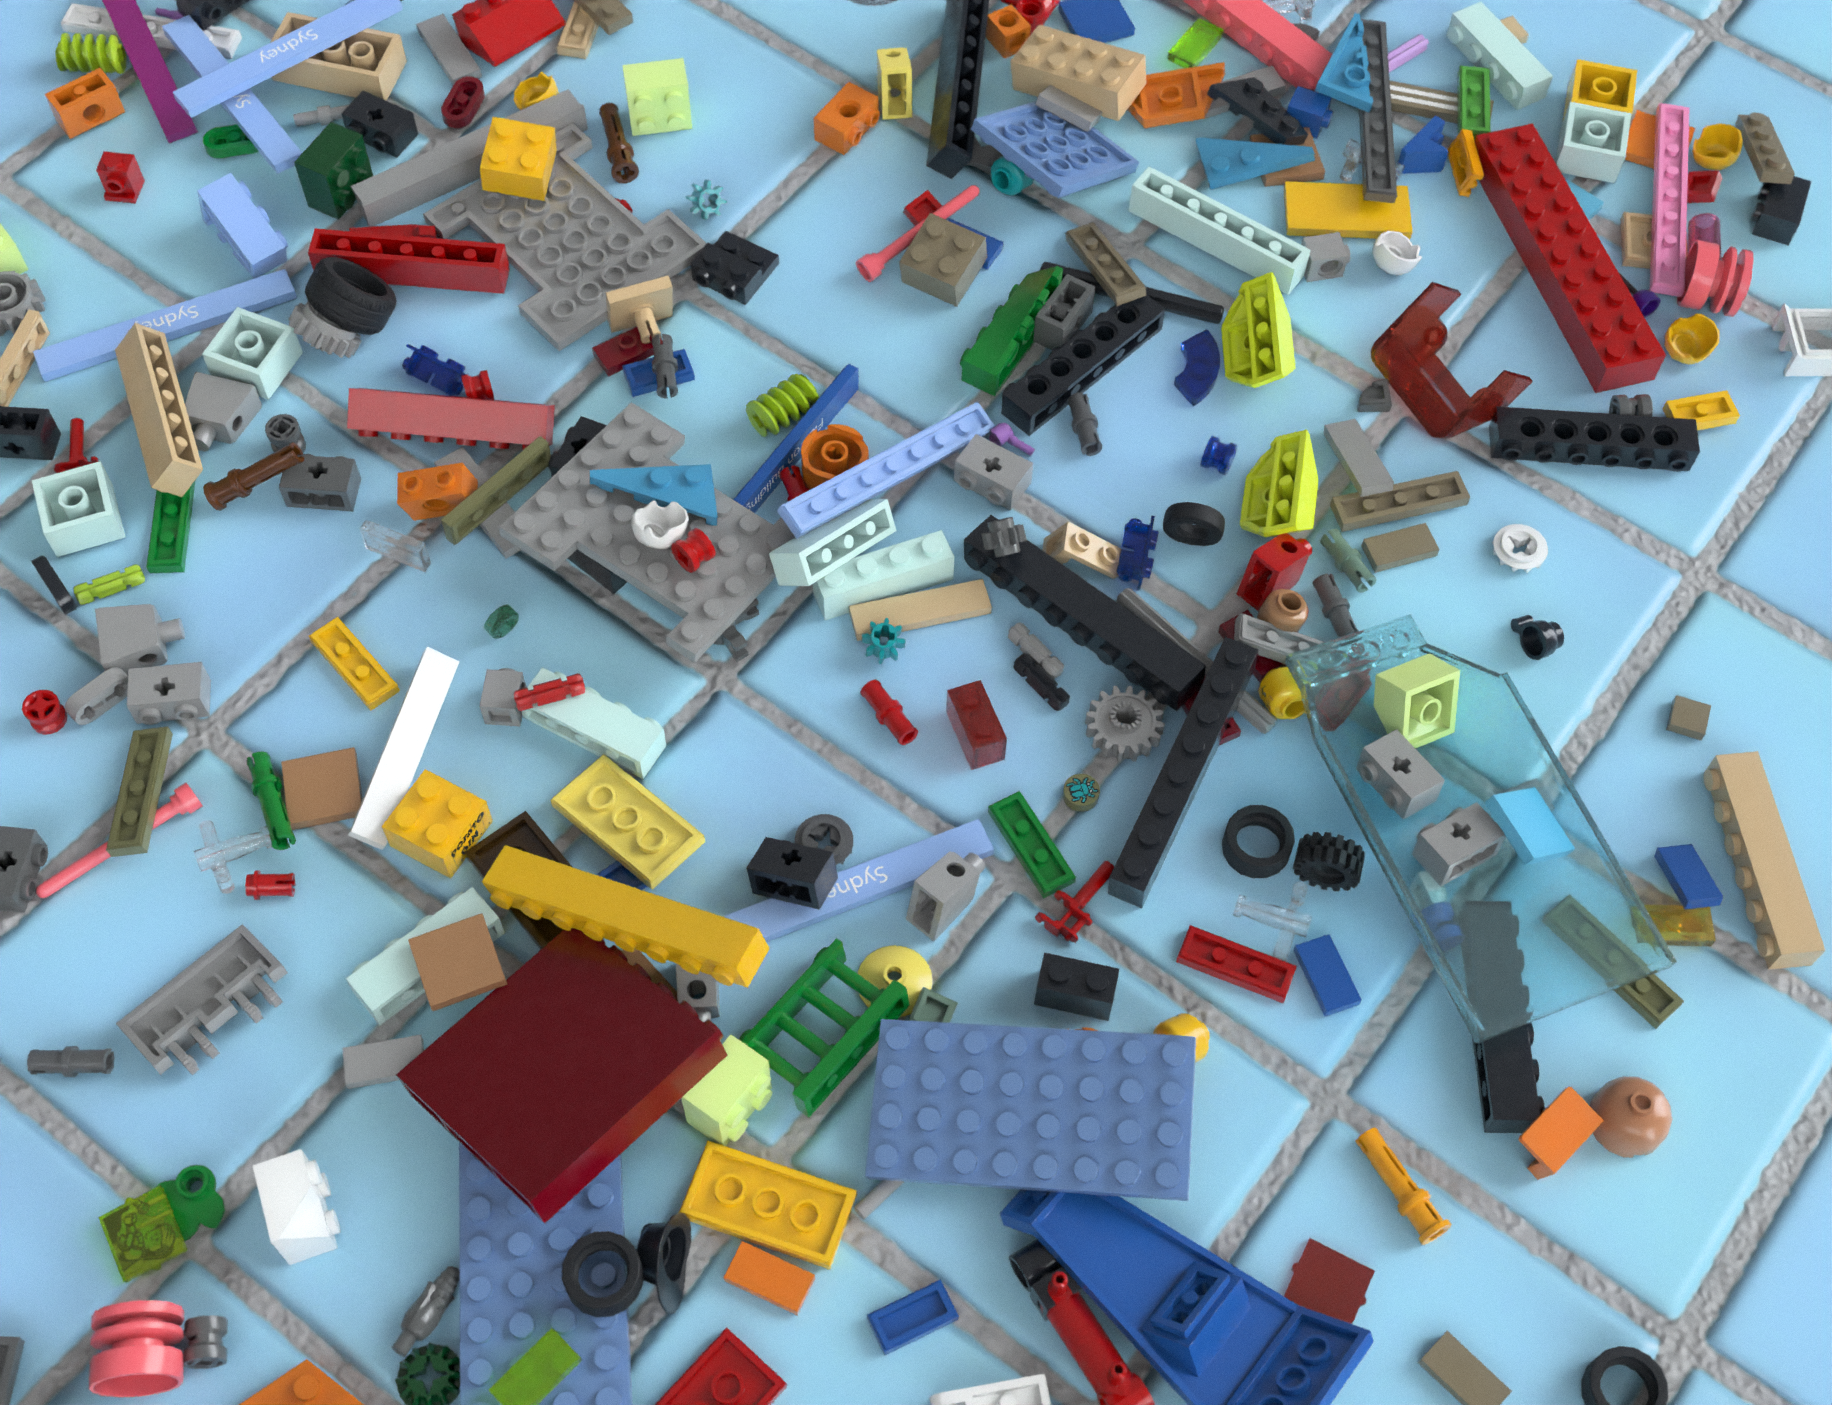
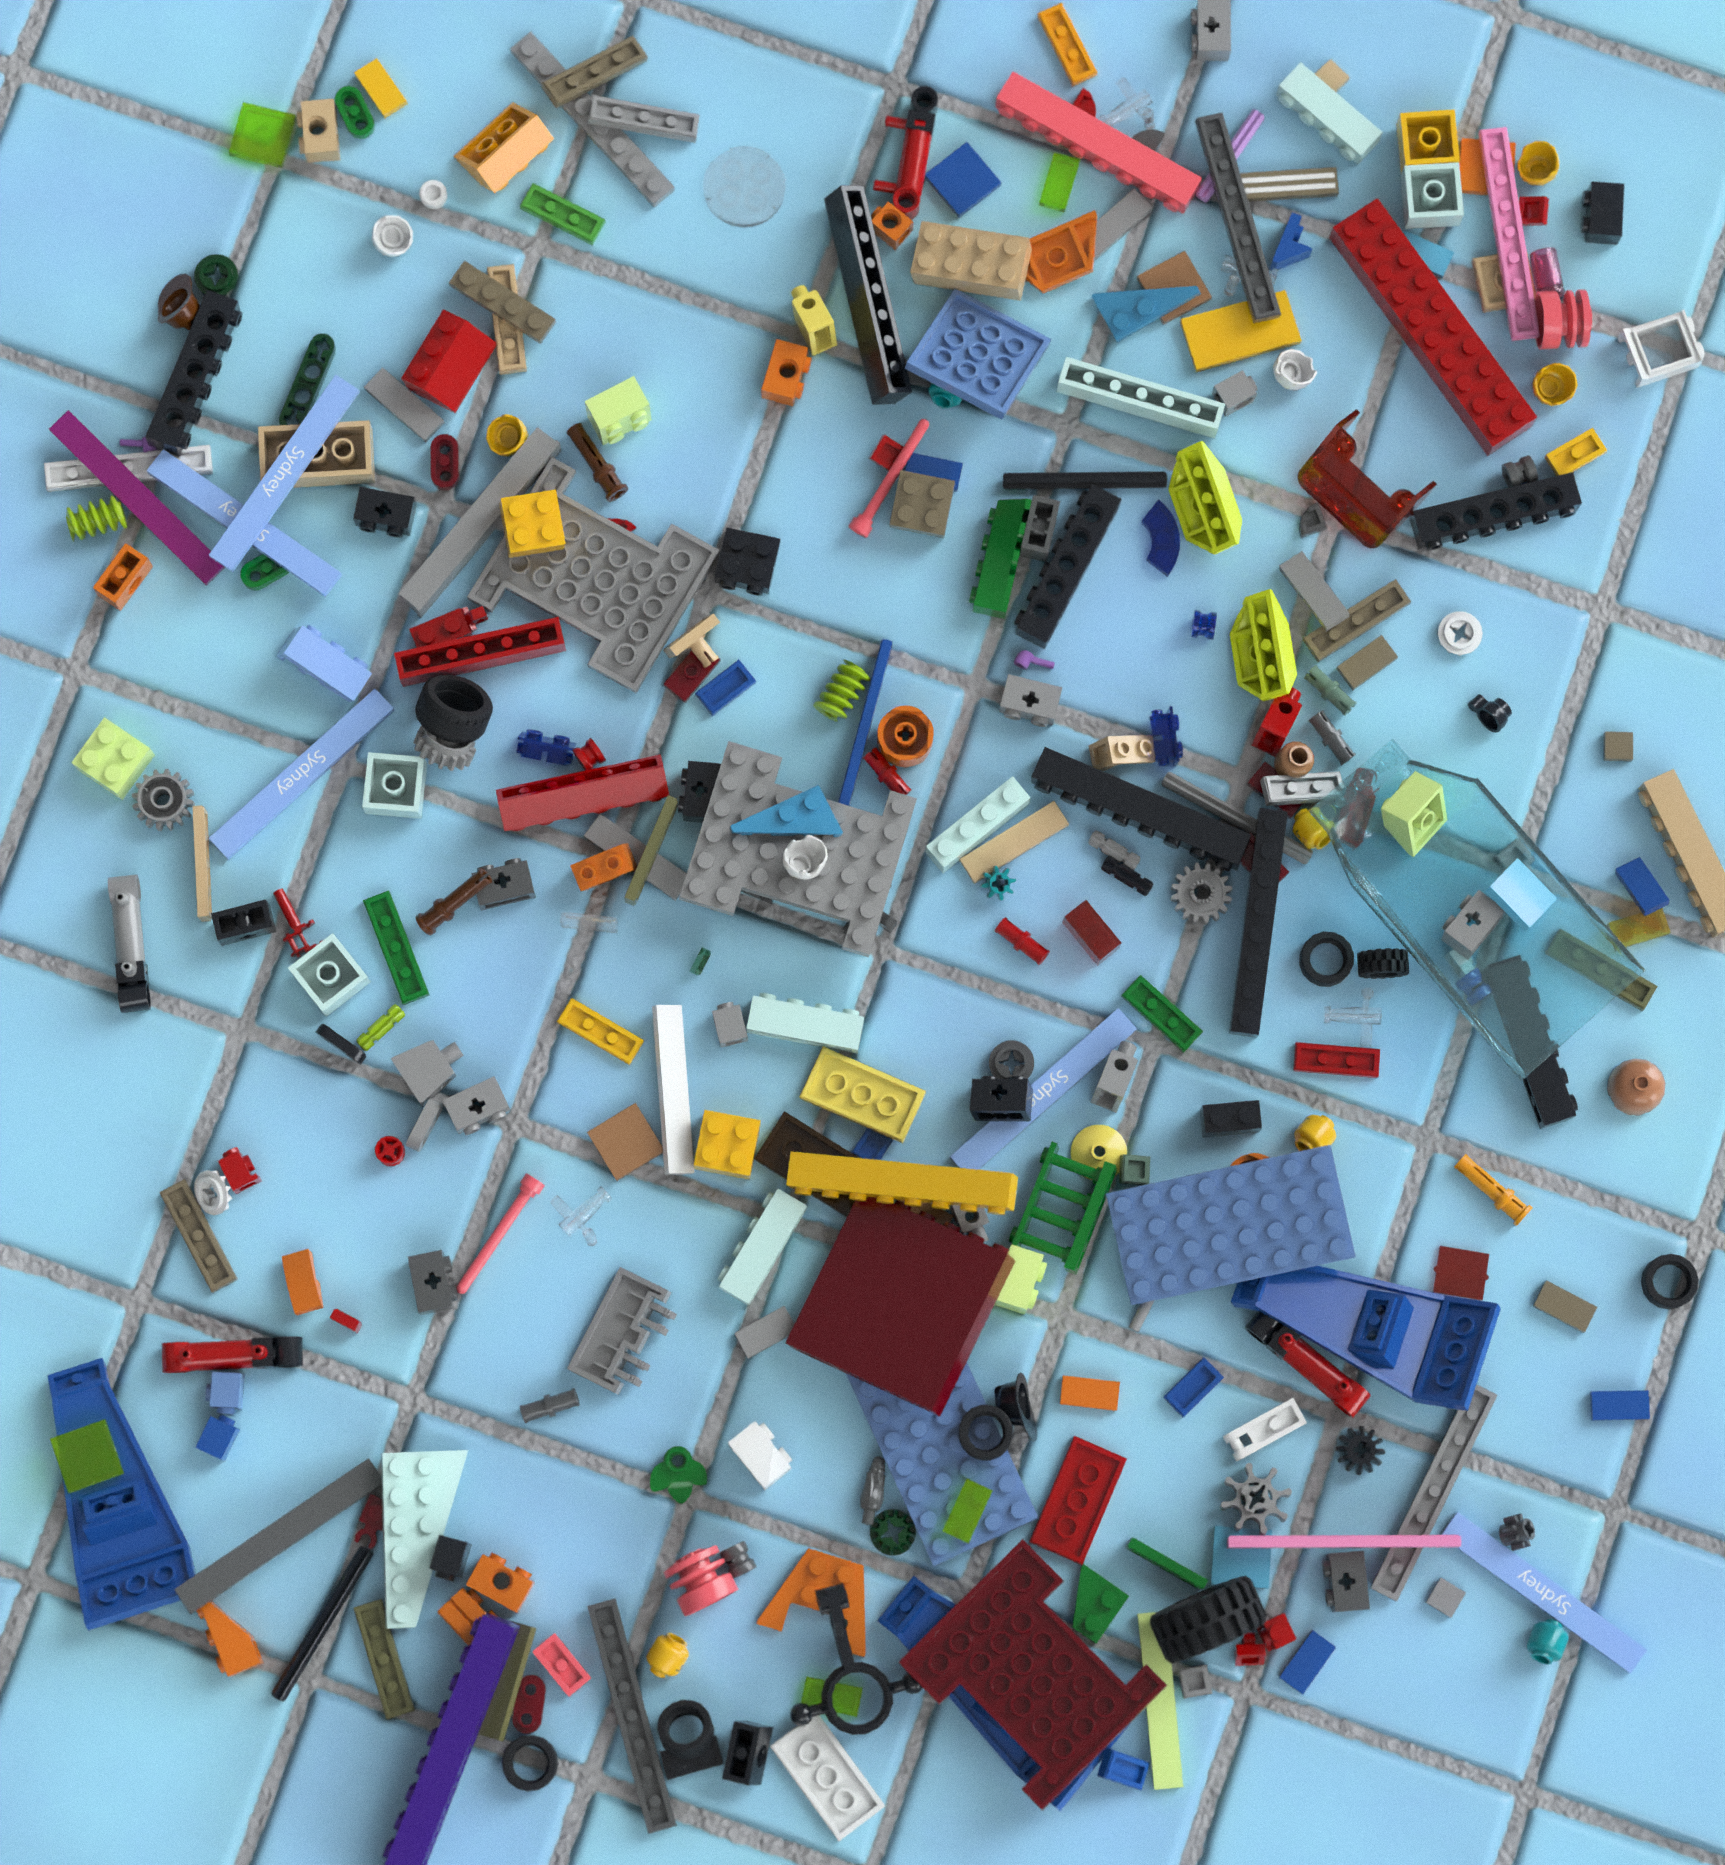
camera: 20 degrees left, 20 degrees up
(120, 177) = (191, 643): red brick -> none
(139, 792) = (495, 1191): olive tile -> none
(143, 1234) = (659, 1504): clear neon green piece -> none
(158, 410) = (348, 866): tan brick -> none
(219, 409) = (389, 845): light grey torso -> none
(267, 789) = (587, 1157): green pin -> none
(269, 884) = (623, 1230): red pin -> none
(284, 430) = (459, 857): dark grey wheel -> none
(322, 115) = (330, 514): light grey bar -> none
(331, 168) = (377, 581): dark green brick -> none
(457, 962) = (794, 1249): medium nougat tile -> none
(549, 692) = (769, 1017): red axle -> none
(664, 366) = (733, 686): dark grey pin -> none
(693, 550) = (837, 870): red wheel -> none
(698, 200) = (699, 502): teal gear -> none
(768, 1204) = (1070, 1343): yellow tile -> none
(832, 544) = (934, 817): light aqua brick -> none
(884, 470) = (952, 733): light blue tile -> none
(1004, 537) = (1065, 772): dark grey gear -> none
(1068, 108) = (975, 303): light grey tile -> none
(1075, 905) = (1210, 1049): red piece -> none
(1081, 792) = (1185, 959): tile -> none
(1084, 424) = (1087, 627): dark grey pin -> none
(1105, 264) = (1057, 463): dark tan tile -> none
(1180, 522) = (1203, 701): black tyre -> none
(1254, 101) = (1135, 247): black wing -> none
(1310, 110) = (1180, 235): blue brick -> none
(1327, 975) = (1403, 1047): blue tile -> none
(1347, 72) = (1205, 196): dark azure wing -> none
(1399, 774) = (1408, 866): light grey brick -> none
(1465, 162) = (1328, 249): light orange tile -> none
(1473, 99) = (1320, 179): bright green tile -> none
(1559, 1132) = (1590, 1119): orange panel -> none
(1644, 298) = (1507, 351): dark purple hinge -> none
(1764, 149) = (1578, 156): dark tan plate -> none

